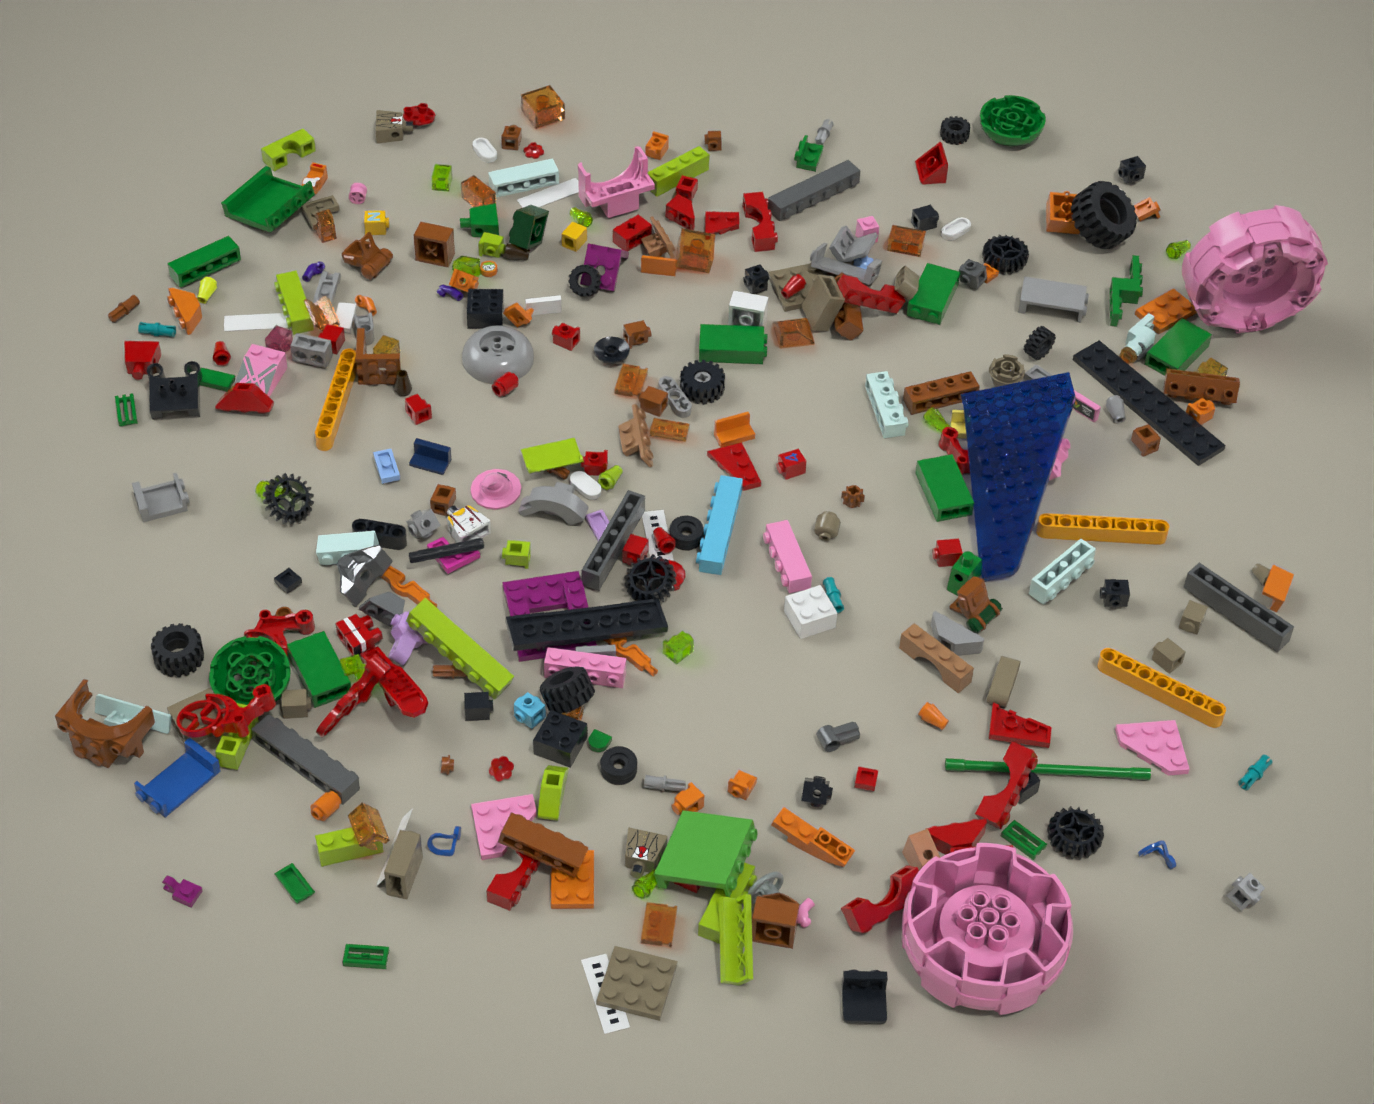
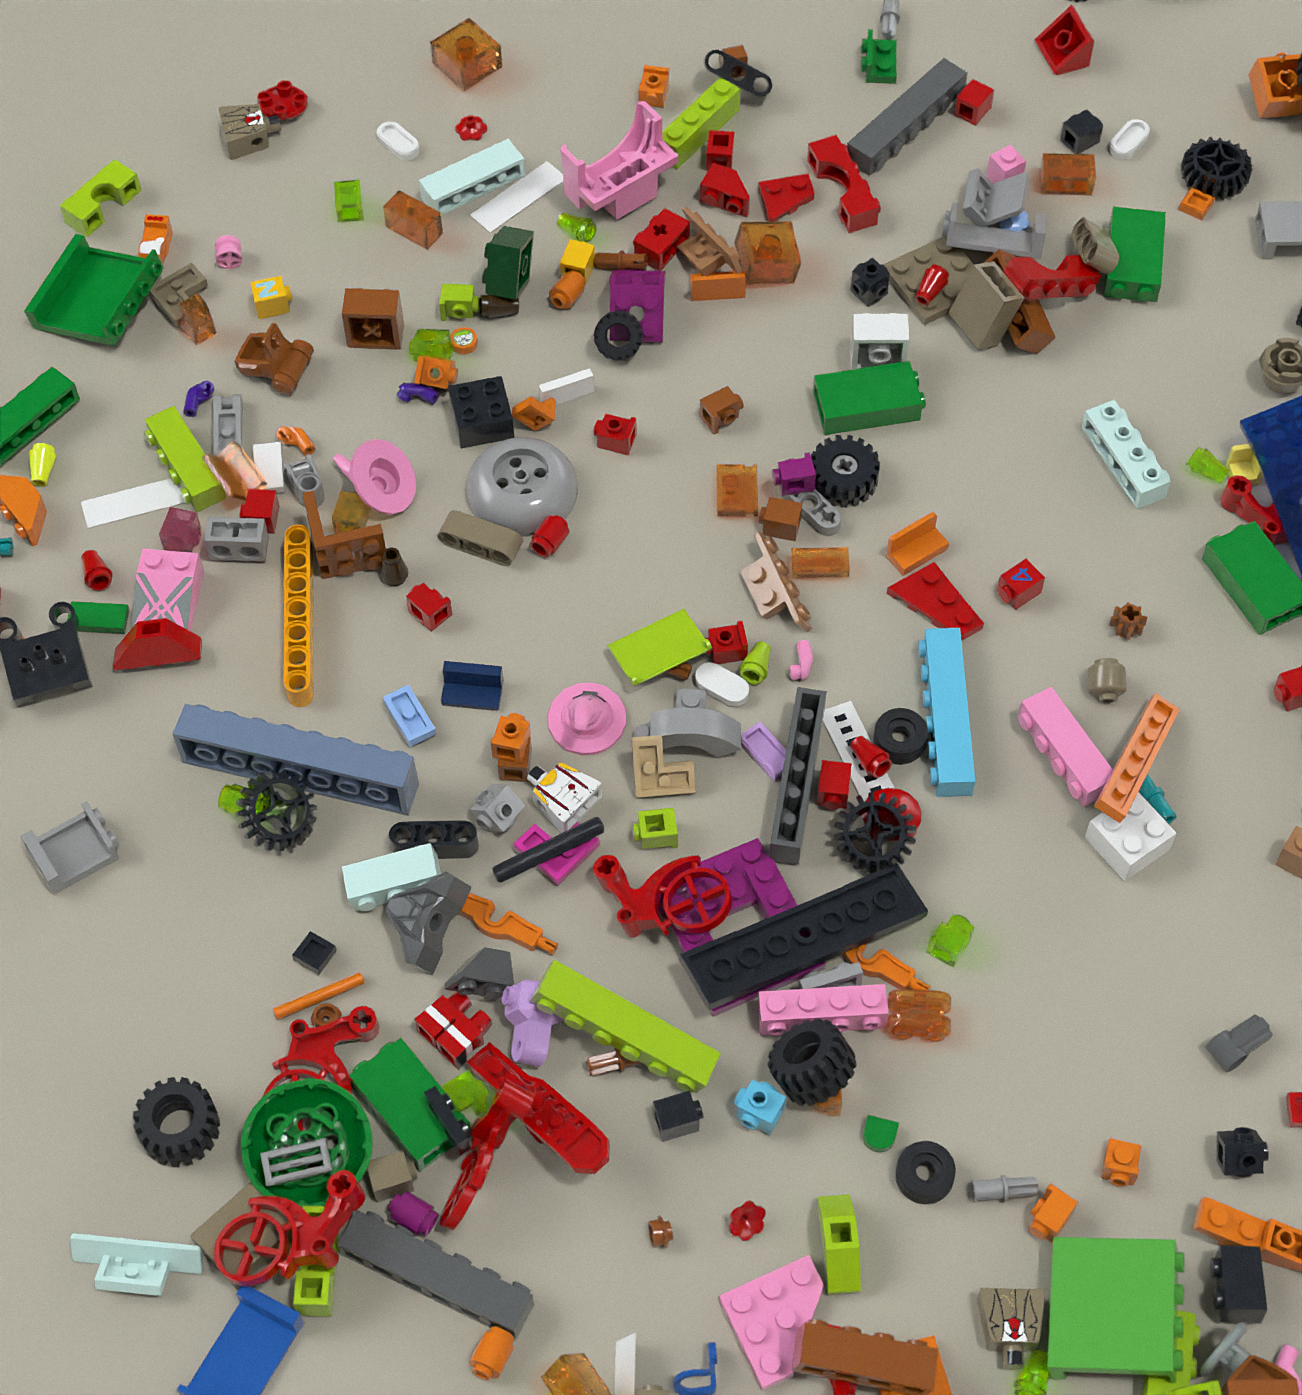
camera: 10 degrees left, 10 degrees up
(99, 741) = (93, 1317): dark orange piece -> none
(225, 684) = (324, 1156): none -> light grey tile
(285, 603) = (318, 996): none -> orange bar
(302, 725) = (413, 1213): none -> magenta brick
(328, 480) = (326, 764): none -> sand blue brick
(335, 669) = (442, 1109): none -> black plate
(411, 331) = (380, 476): none -> bright pink piece
(445, 482) = (511, 738): none -> orange brick
(462, 378) = (480, 538): none -> dark tan beam
(481, 220) = (432, 263): green torso -> none
(492, 591) = (642, 904): none -> red piece
(511, 132) = (431, 107): dark orange brick -> none
(525, 525) = (653, 775): none -> tan plate
(560, 738) = (823, 1146): black brick -> none
(562, 251) = (567, 290): none -> orange brick
(602, 240) = (620, 261): none -> dark orange axle
(611, 349) = (692, 435): black dish -> none
(642, 479) = (805, 661): none -> bright pink arm
(644, 681) = (919, 1014): none -> clear orange brick
(668, 377) = (795, 475): none -> magenta brick
(706, 139) = (750, 76): none -> black beam
(789, 857) = (1239, 1283): none -> black brick
(793, 333) = (949, 359): clear orange slope -> none
(827, 567) = (1137, 758): none -> orange plate
(860, 189) = (974, 102): none -> red brick
(939, 392) = (1199, 417): dark orange brick -> none
(972, 273) = (1182, 210): dark grey brick -> none

